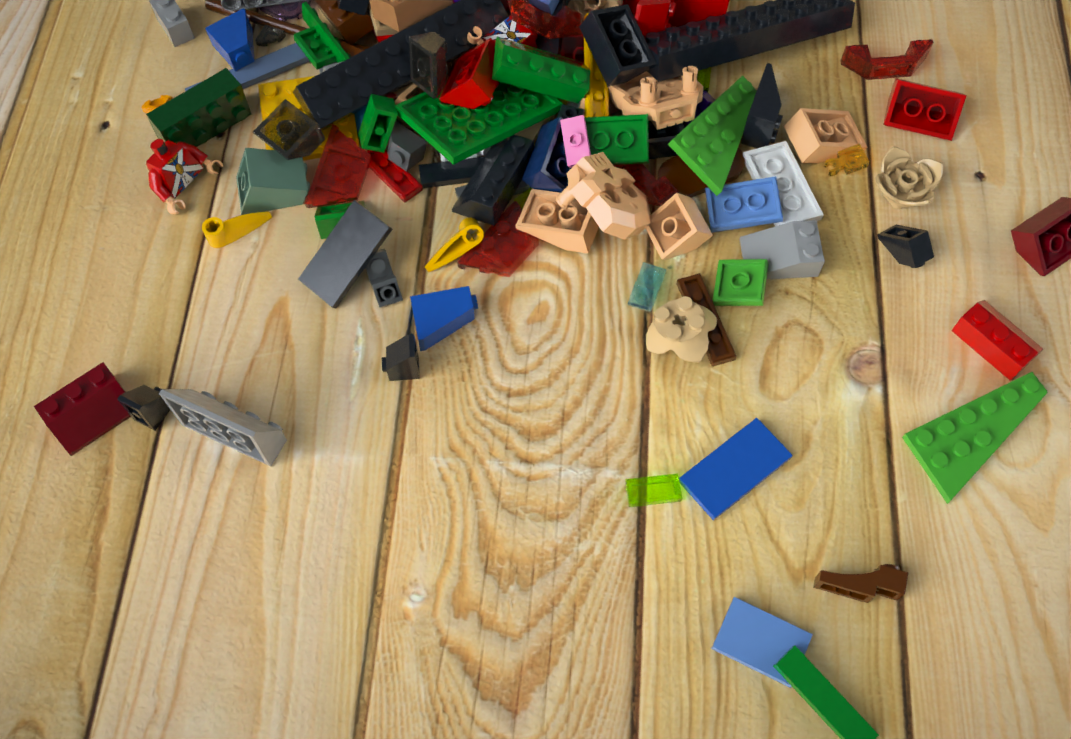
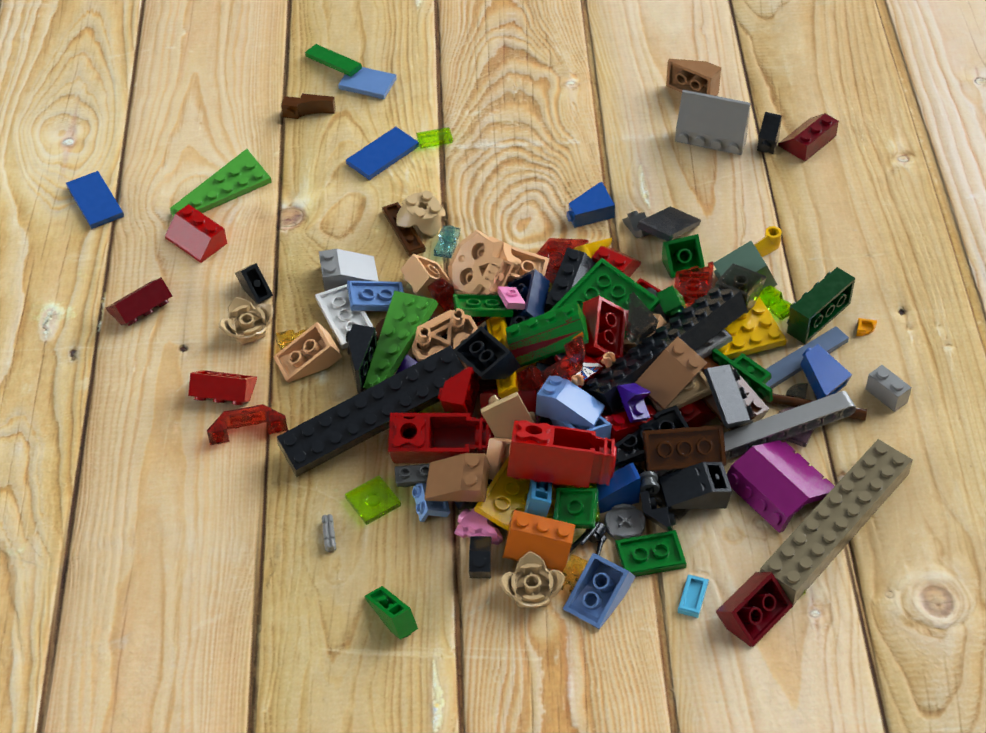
camera: 175 degrees right, 15 degrees down
(174, 168) = (826, 262): torso -> none
(202, 530) = (693, 76): none -> medium nougat slope
(245, 138) = (774, 302): none -> clear neon green slope
(402, 359) = (610, 173): black slope -> none
(429, 219) = (619, 260): none -> red slope
(740, 282) = (379, 247): bright green tile -> none

